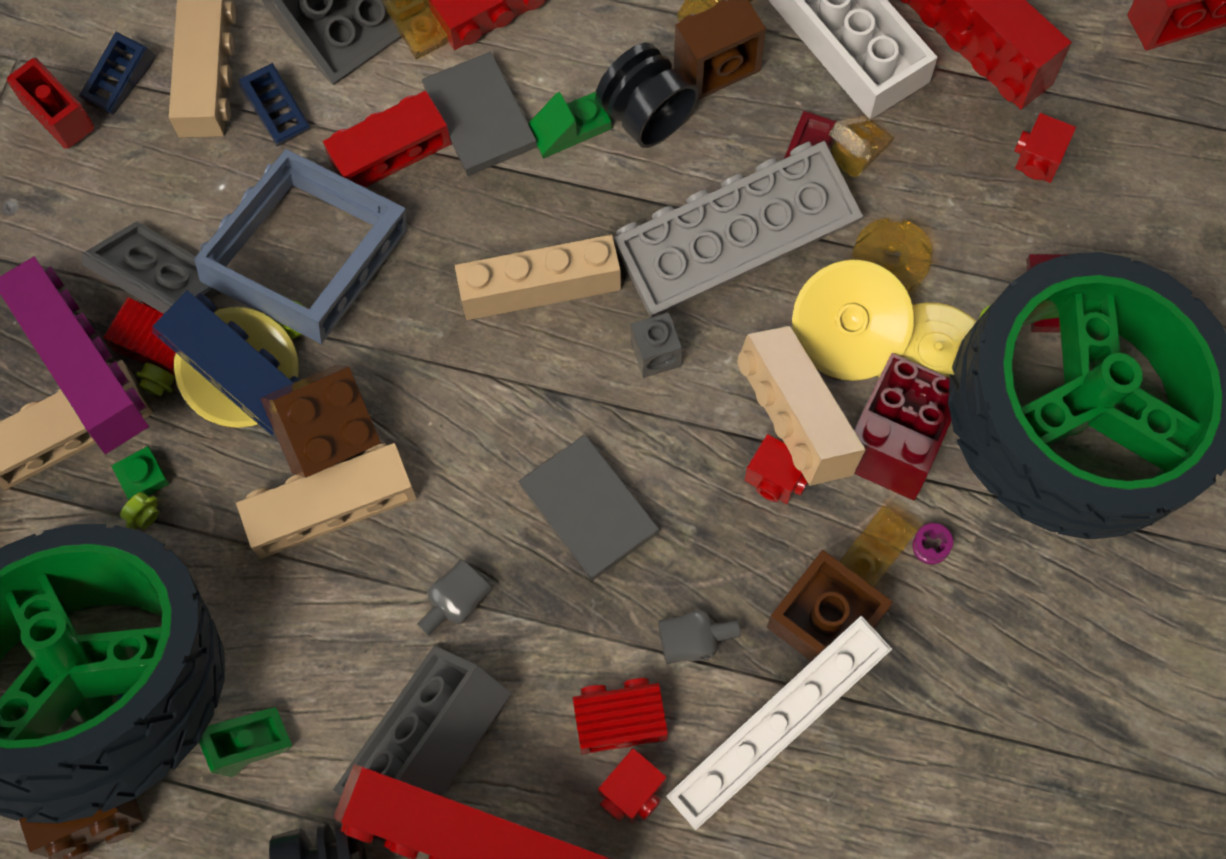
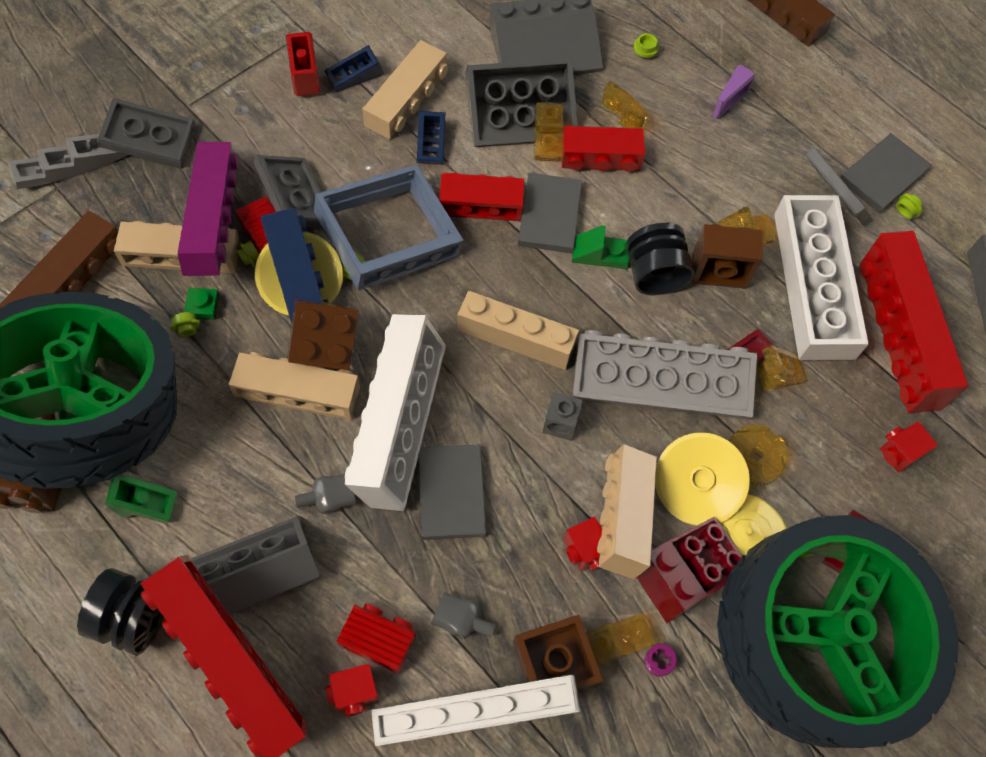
camera: 25 degrees right, 5 degrees down
(469, 456) = (396, 413): none -> white brick

